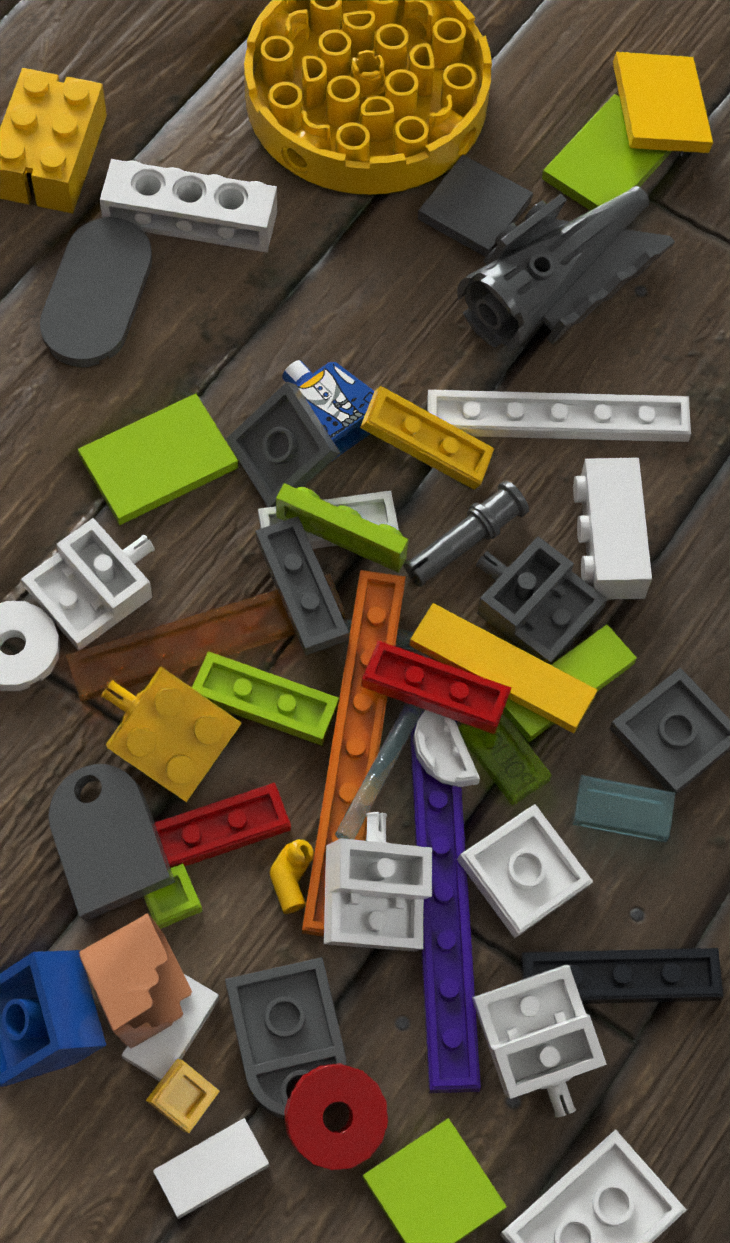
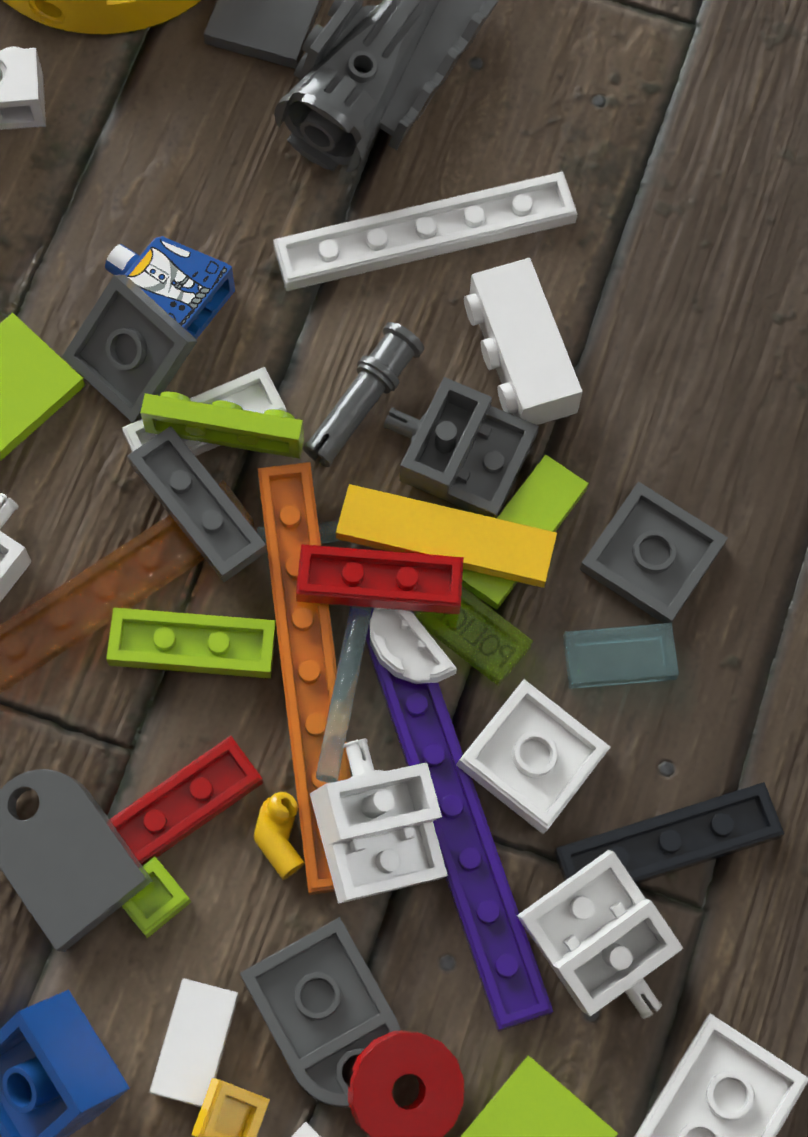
camera: 15 degrees left, 5 degrees up
(136, 980) = (142, 1005): nougat piece -> none
(170, 732) = (97, 712): yellow plate -> none
(427, 437) = (288, 296): yellow tile -> none

